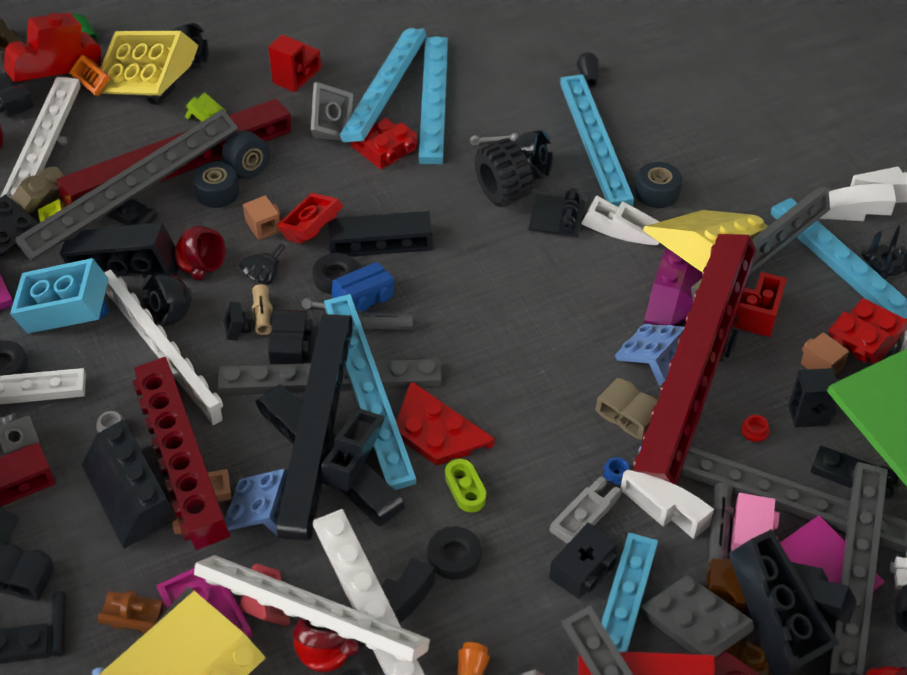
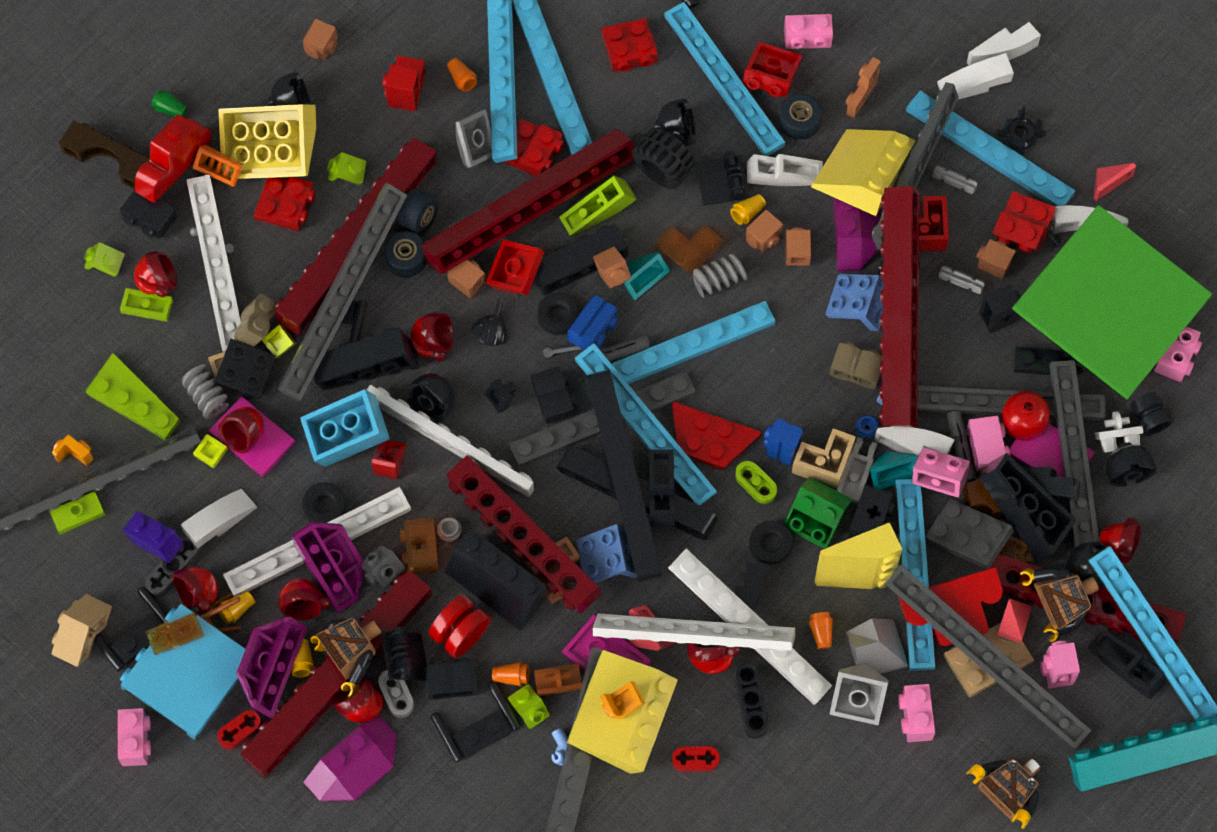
camera: 20 degrees left, 20 degrees up
(53, 514) = (459, 626): none -> red wheel
(69, 429) = (425, 559): none -> clear orange brick
(83, 633) = (529, 706): none -> lime bracket
(87, 590) = (512, 674): none -> orange cone
(88, 342) = (388, 459): none -> red slope
(134, 120) = (285, 202): none -> red plate
(177, 652) = (622, 701): none -> light orange bracket
(240, 20) = (320, 40): none -> nougat brick
(261, 298) = (515, 374): tan pin -> none
(350, 76) = (463, 77): none -> orange cone
(352, 171) = (528, 201): none -> dark red brick
(406, 243) = (612, 267): none -> nougat brick
(432, 194) = (598, 206): none -> lime slope
(439, 266) = (645, 273): none -> teal slope
(461, 339) = (695, 343): none -> medium azure plate
(475, 140) = (614, 115): light grey hinge -> none
(495, 263) = (689, 253): none -> clear orange plate
(512, 449) = (782, 441): none -> blue brick
(515, 284) = (718, 273): none -> light grey piece
(516, 95) = (629, 45): none -> red plate
(521, 537) = (817, 512): none -> green slope
(540, 587) = (860, 561): none -> light yellow slope
(552, 488) = (828, 464): none -> tan brick
(571, 242) = (747, 209): none -> yellow cone
(580, 263) = (764, 231): none -> nougat brick
(608, 284) = (797, 247): none -> nougat brick
(620, 520) = (892, 467): none -> teal slope
(644, 142) = (771, 69): none -> red plate
(684, 536) = (941, 472): none -> bright pink brick
(696, 124) = (808, 31): none -> bright pink brick
(737, 177) = (866, 83): none -> nougat plate
(755, 428) = (961, 348): red plate -> none
(776, 365) = (961, 279): none -> light grey axle
(802, 279) = (954, 179): none -> light grey axle
(810, 511) = (1025, 415): none -> red cylinder

